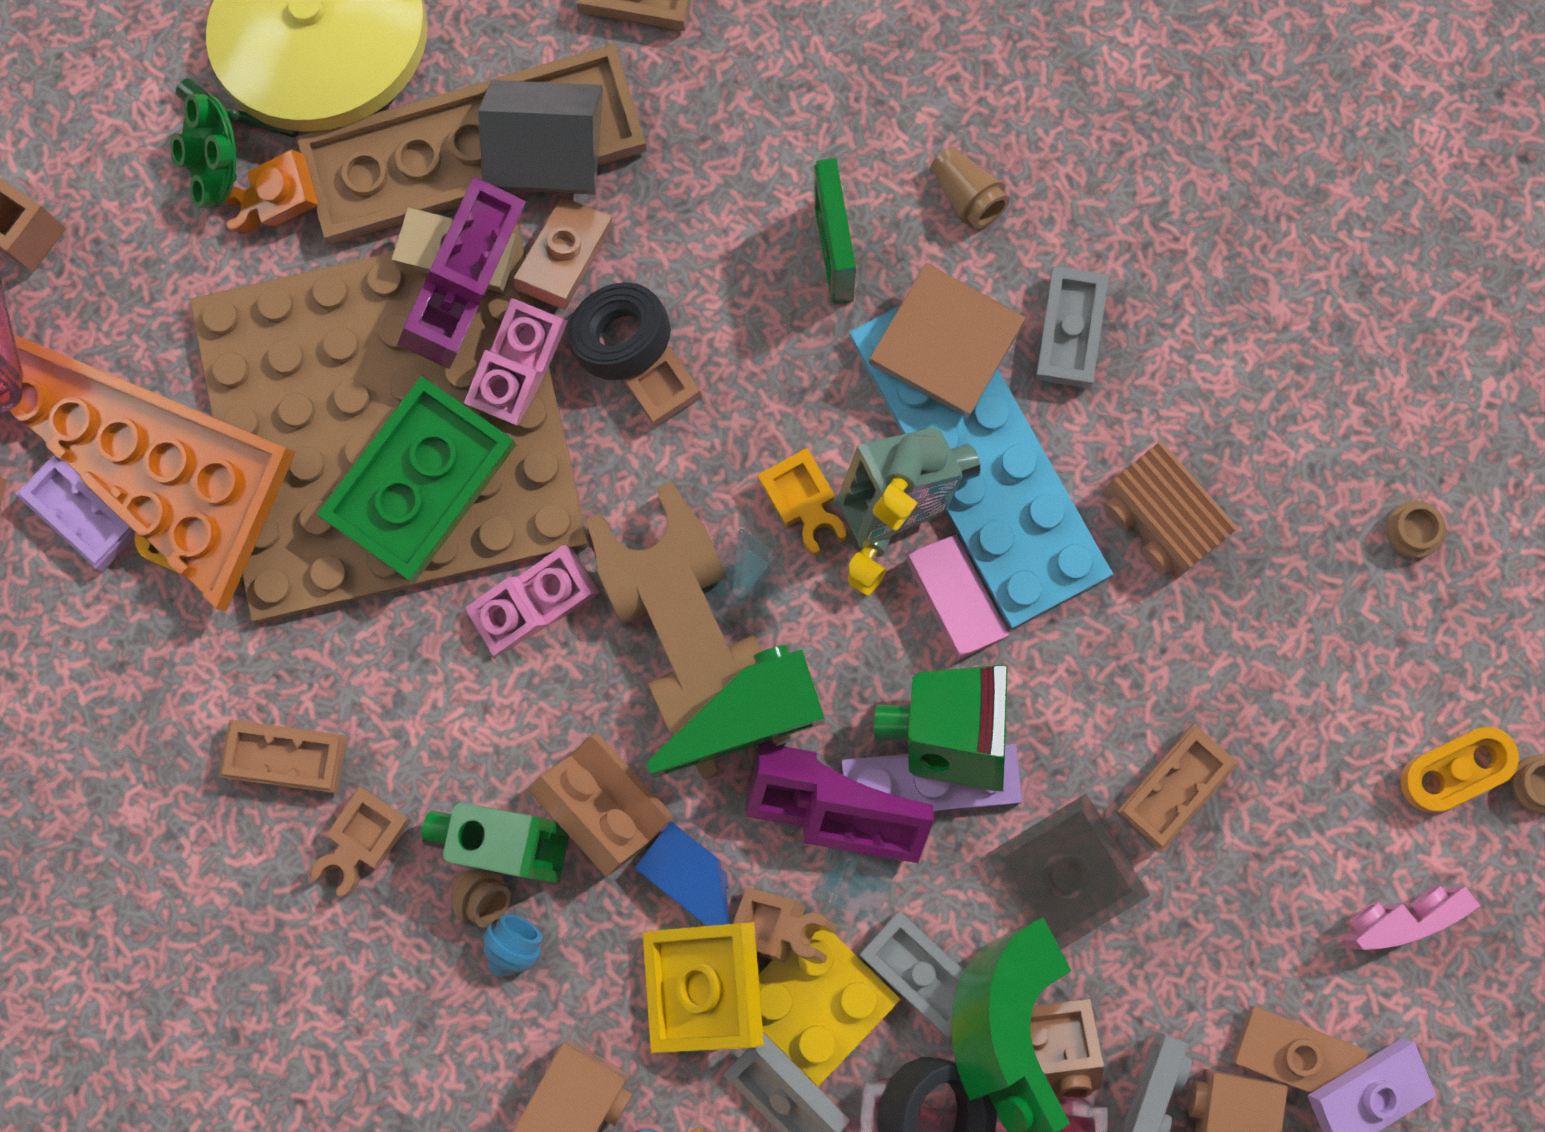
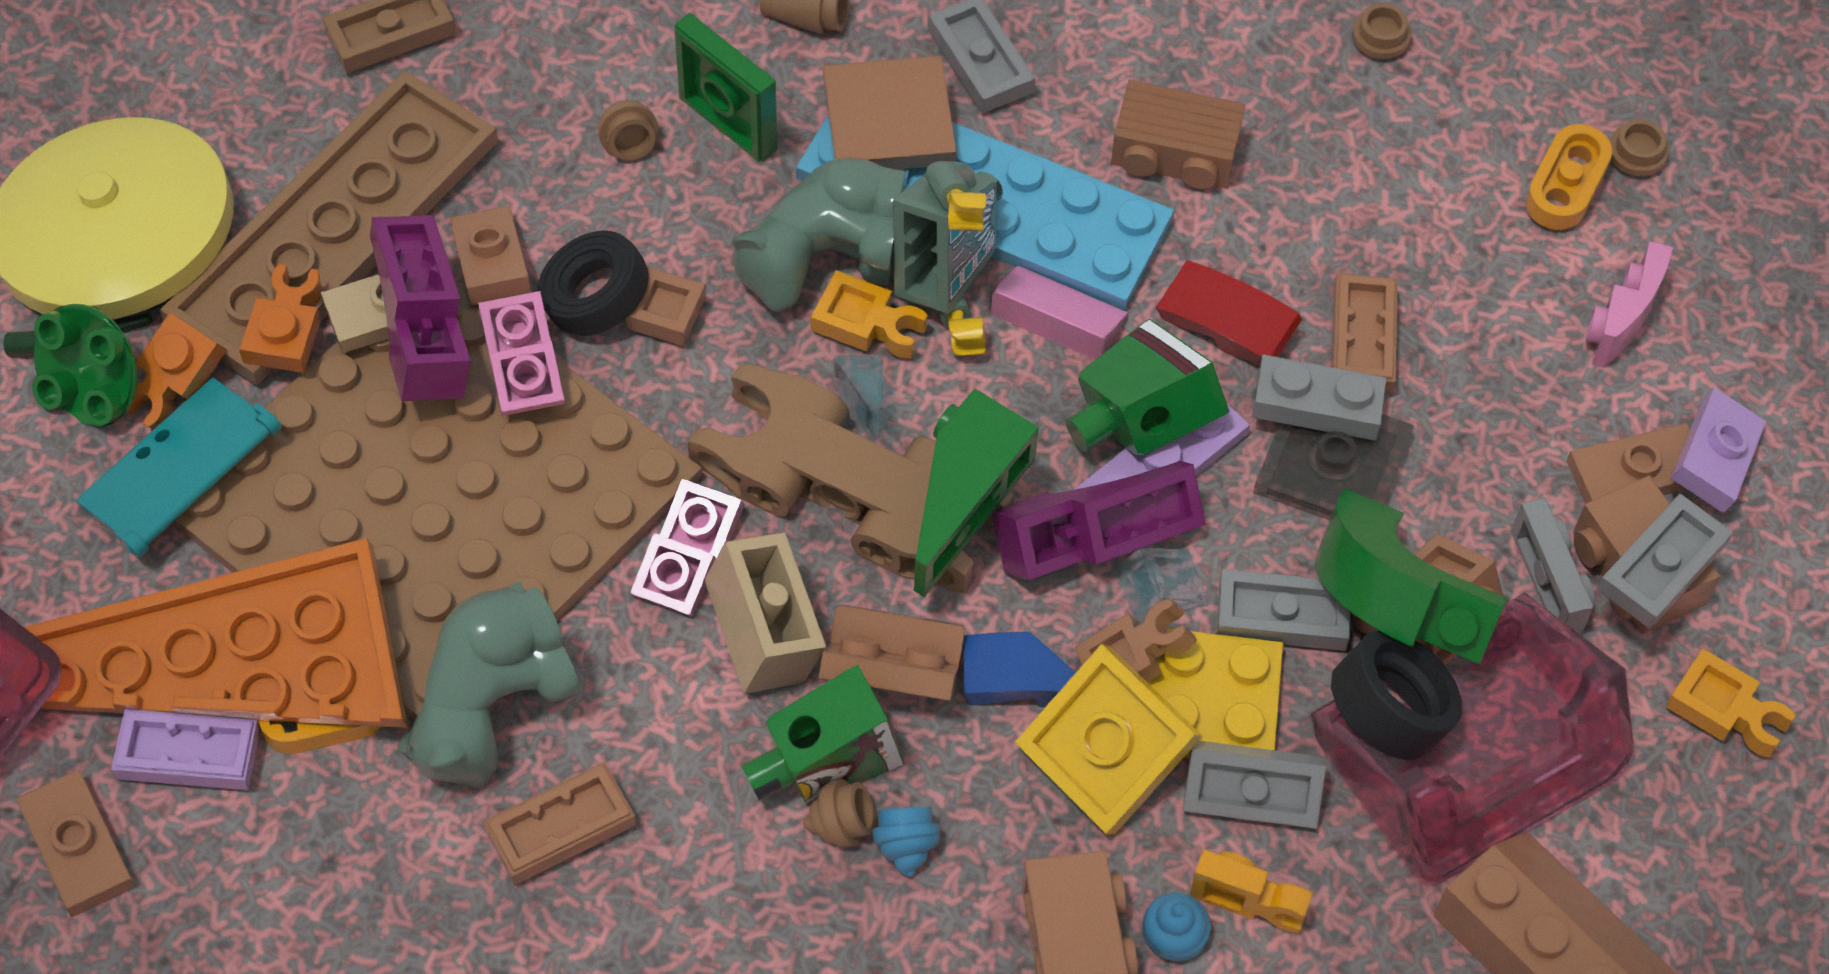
camera: 45 degrees left, 20 degrees down
(190, 287) = (201, 446): none -> teal door
(302, 601) = (483, 652): none -> sand green animal
(365, 217) = (283, 328): none -> orange plate
(365, 834) = (690, 837): nougat plate -> none
(417, 479) = (507, 499): green plate -> none
(533, 704) = (764, 612): none -> tan brick
(540, 136) = (403, 167): dark grey slope -> none
(746, 210) = (628, 130): none -> medium nougat plate
(836, 396) = (835, 208): none -> sand green animal
(1081, 697) = (1231, 311): none -> red slope
(1090, 823) = (1319, 397): none -> light grey plate

